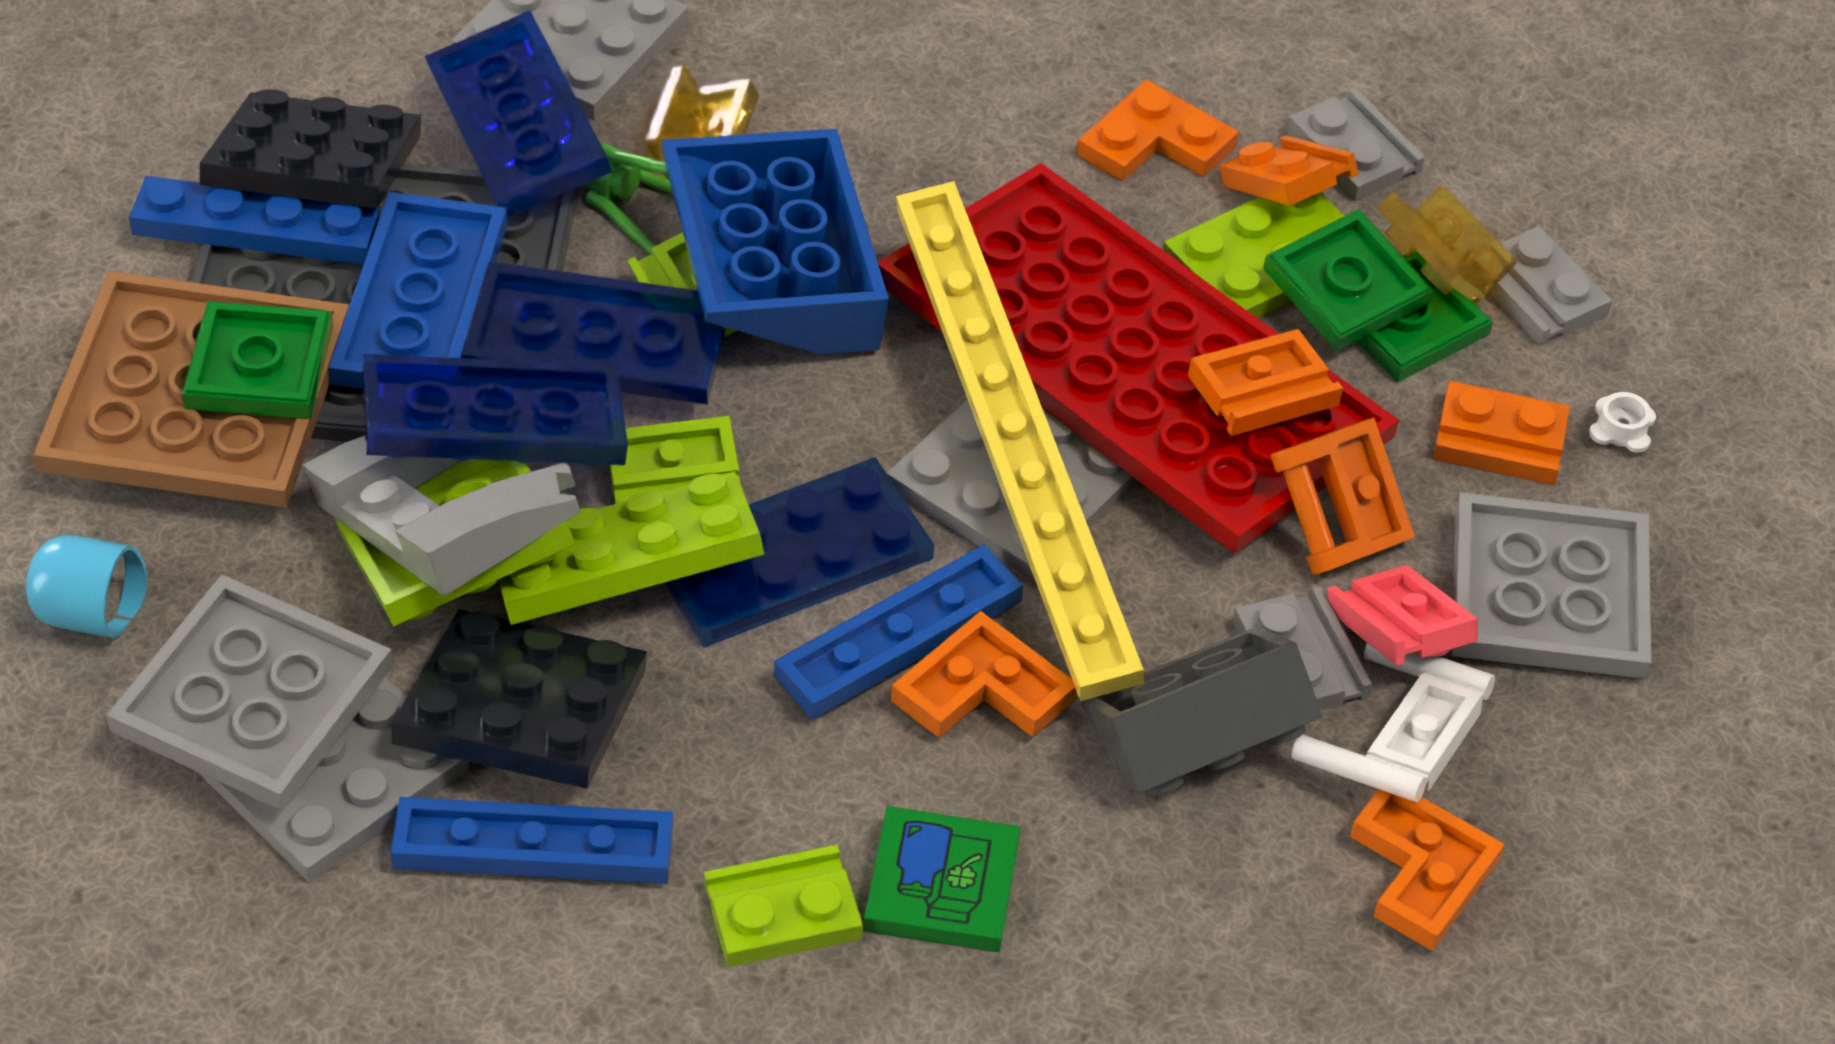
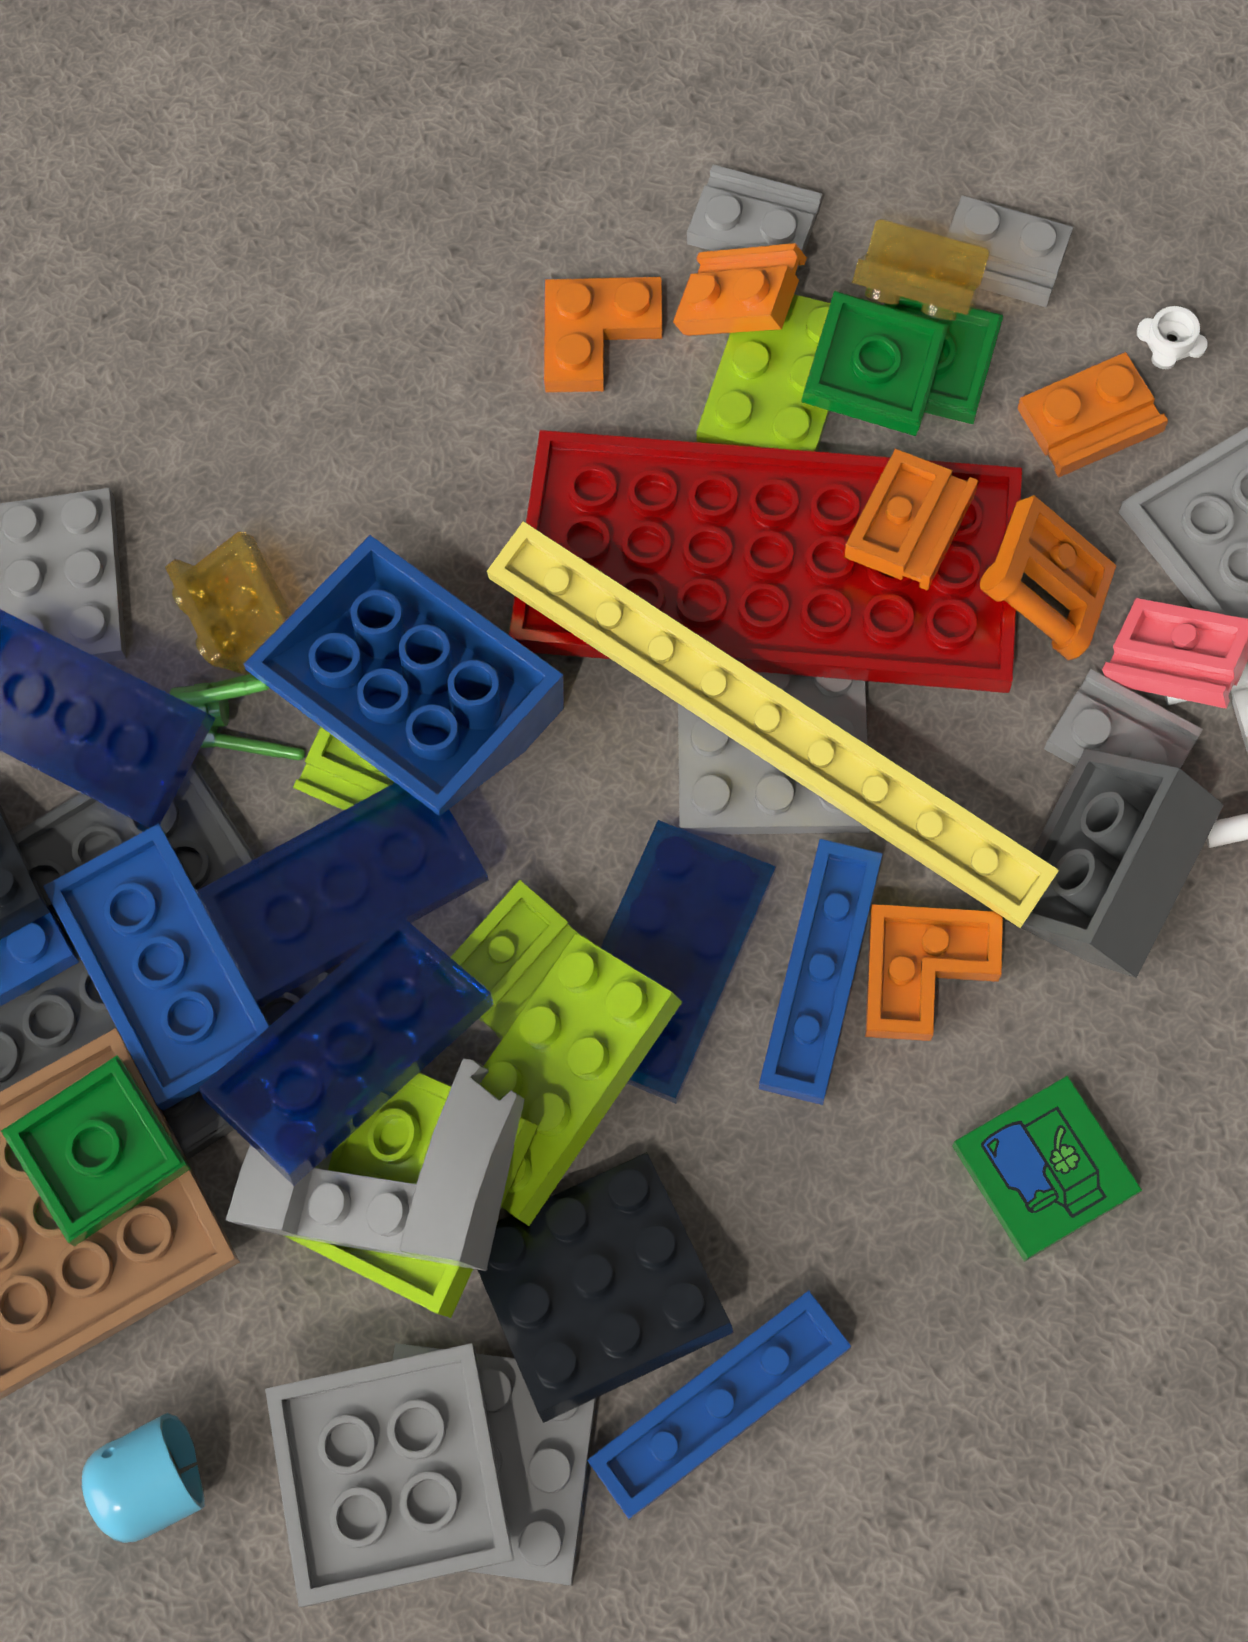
camera: 30 degrees left, 20 degrees up
(783, 905) = (952, 1295): lime plate -> none

